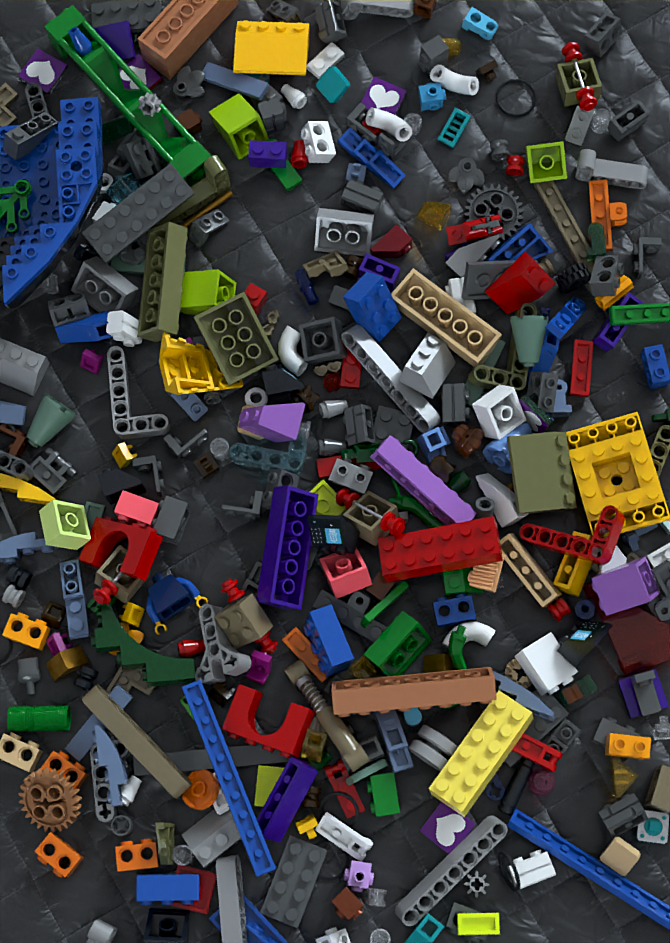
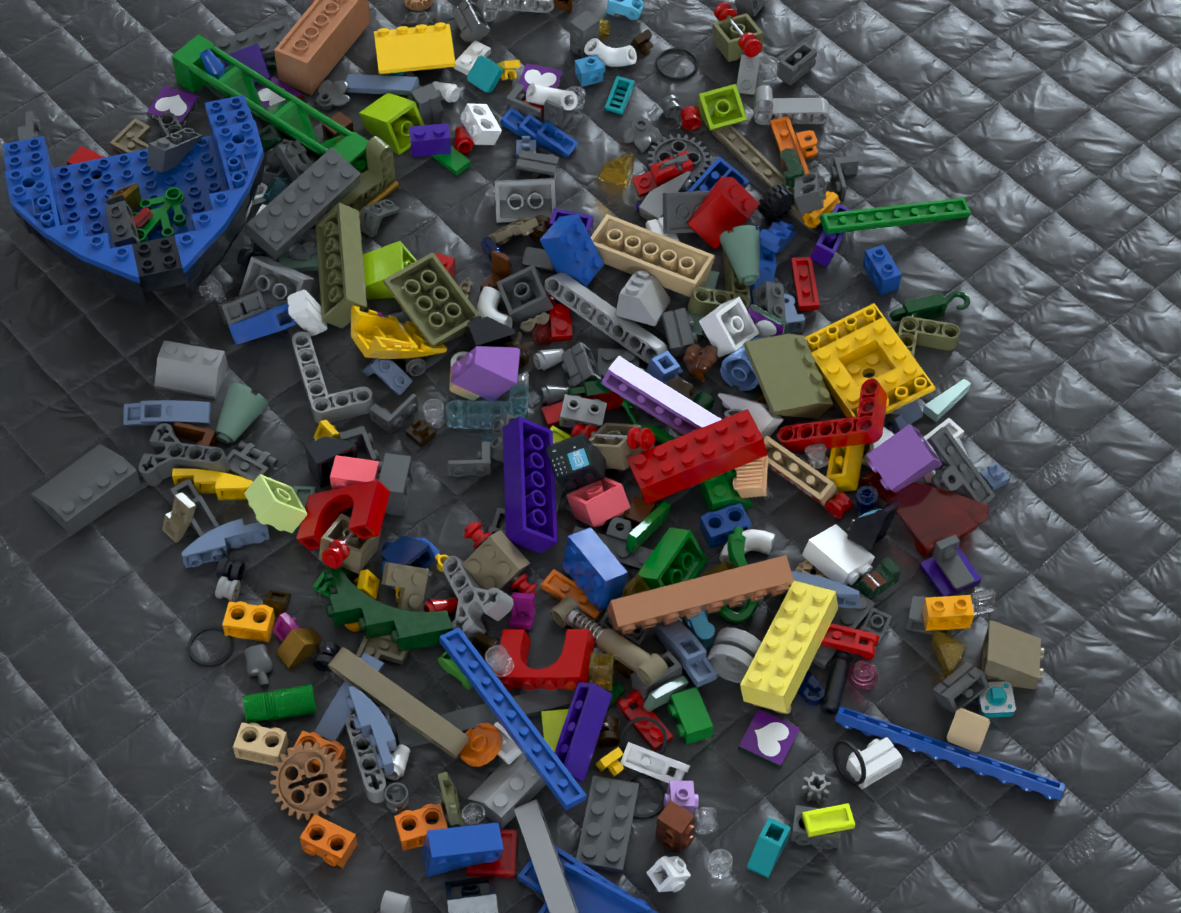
camera: 15 degrees left, 20 degrees down
(75, 599) = (298, 579): sand blue slope -> none
(91, 361) = (274, 353): magenta tile -> none
(149, 104) = (295, 109): light grey gear -> none
(167, 623) = (412, 584): none -> dark tan plate
(225, 716) = (499, 660): none -> clear wheel
(303, 314) = (500, 270): none -> reddish brown bracket
(356, 79) = (509, 68): none -> yellow tile
(393, 244) = (581, 200): dark red slope -> none
(441, 874) = (775, 781): light grey beam -> none
(549, 561) = (817, 455): none -> clear wheel

